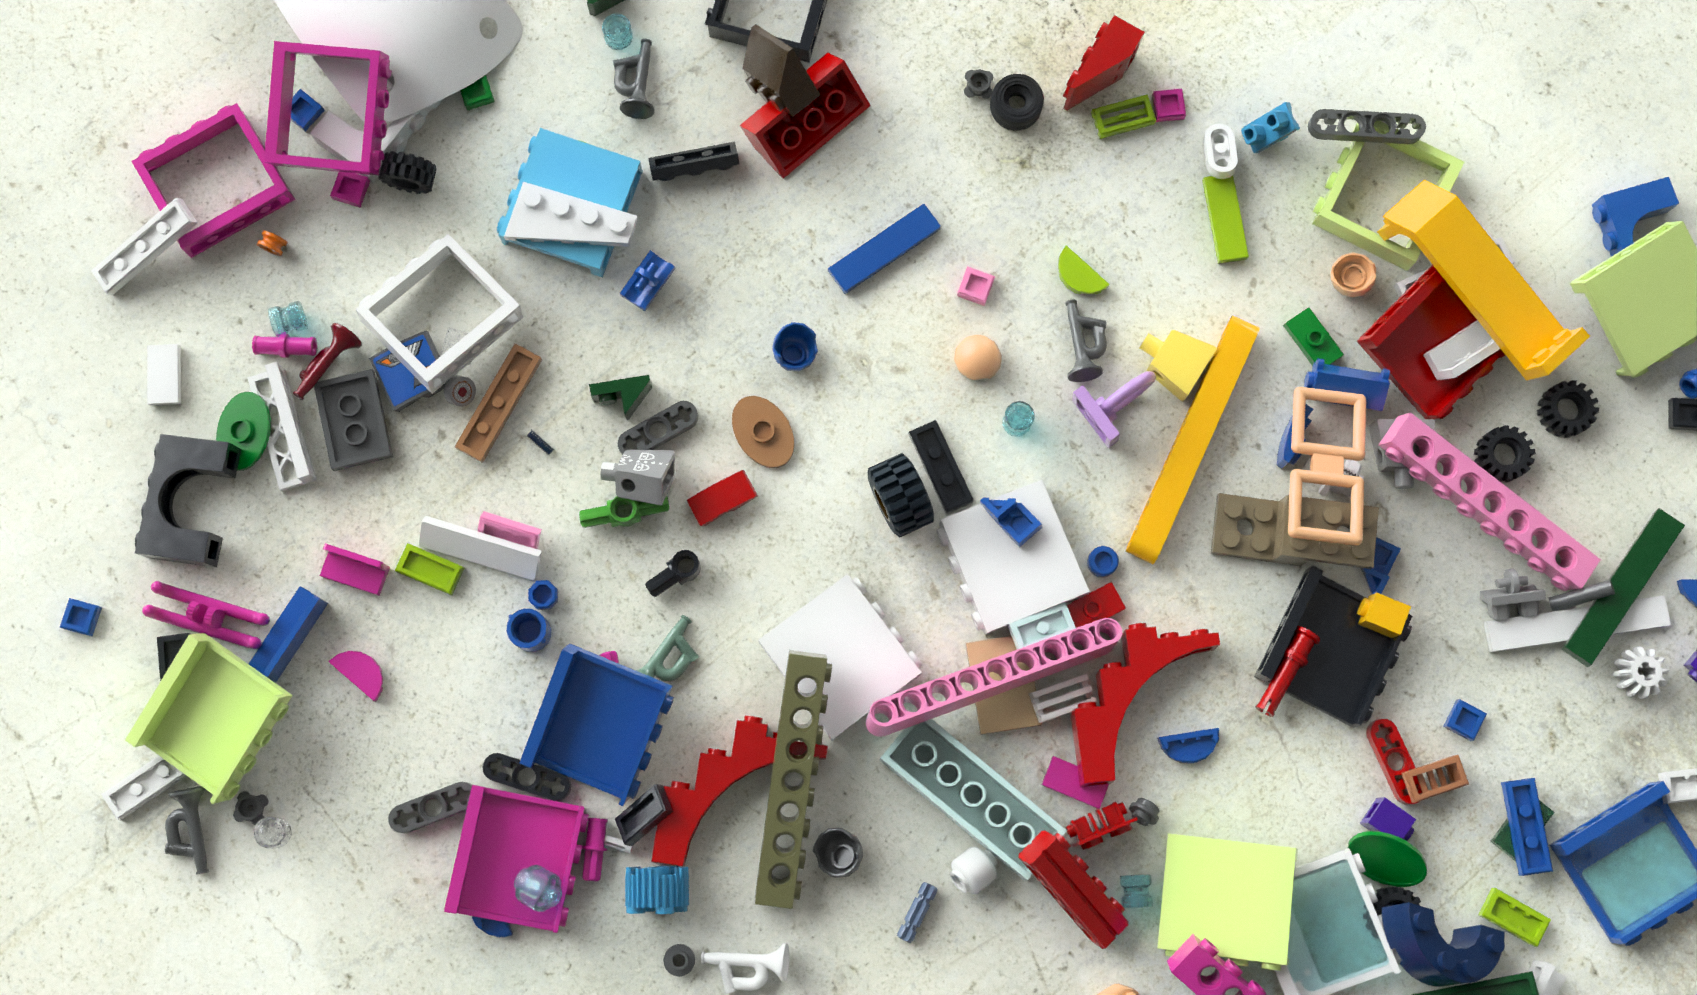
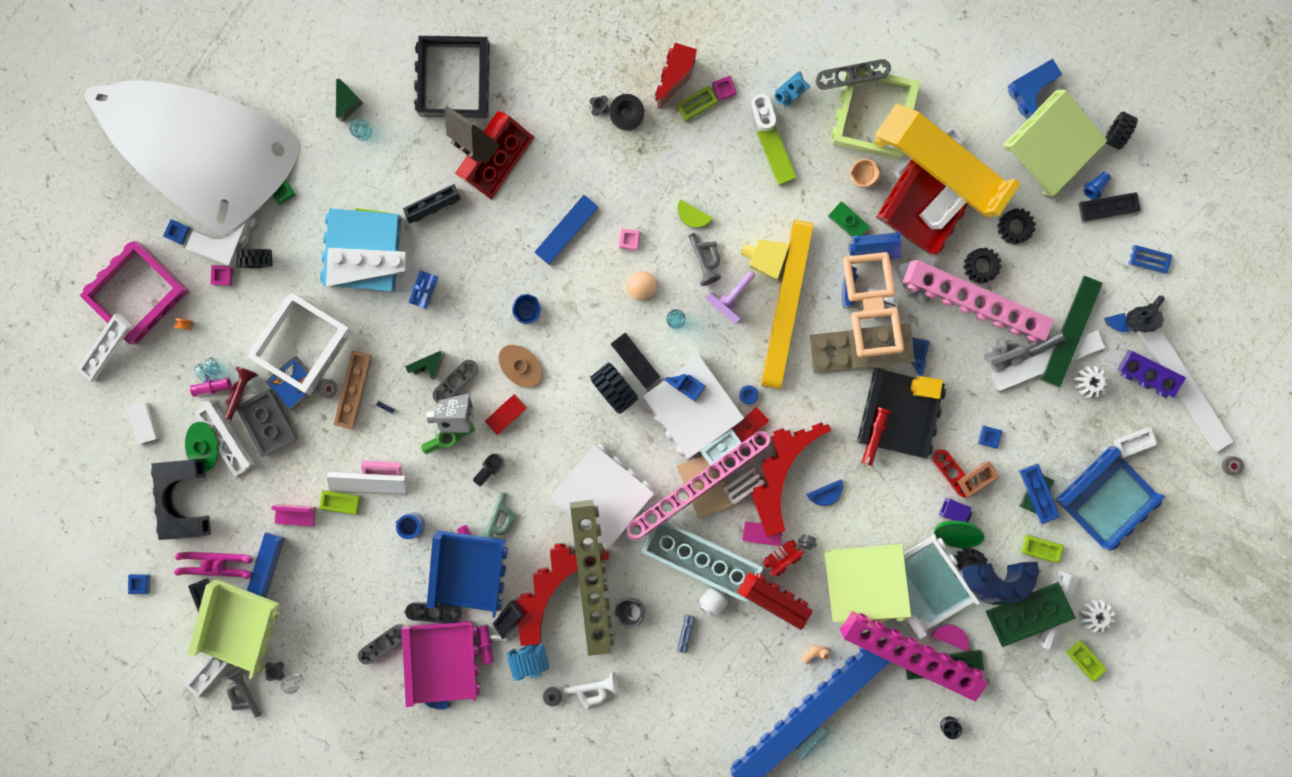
camera: 10 degrees left, 10 degrees up
(281, 104) = (162, 241): dark pink window -> none
(361, 671) = (316, 574): dark pink tile -> none
(538, 888) = (457, 678): clear light blue head -> none
(543, 595) = (413, 501): blue tile -> none
(637, 105) = (386, 175): dark grey piece -> none
(1132, 898) = (813, 590): clear light blue wheel -> none

